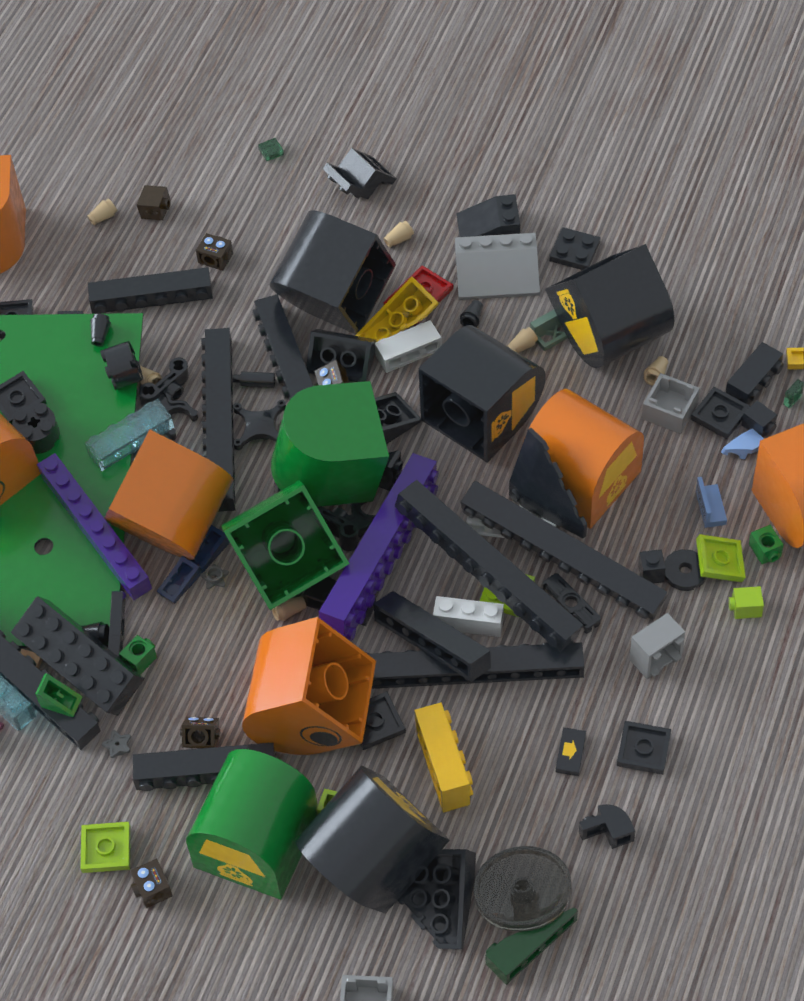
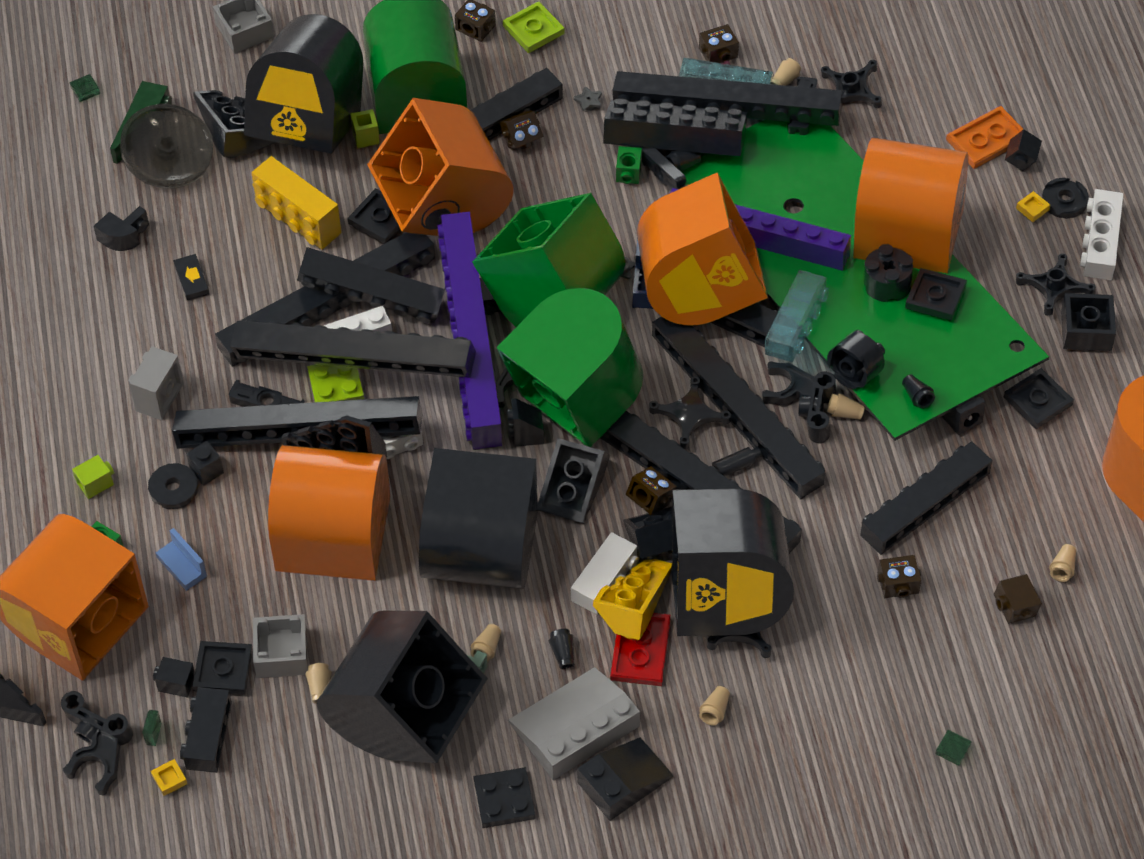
camera: 145 degrees right, 0 degrees up
(57, 696) = (656, 78): green slope -> none
(359, 174) = (815, 749): black bracket -> none
(644, 747) = (125, 306): black plate -> none
(720, 558) = (140, 504): lime plate -> none
(743, 444) = (177, 643): light blue slope -> none

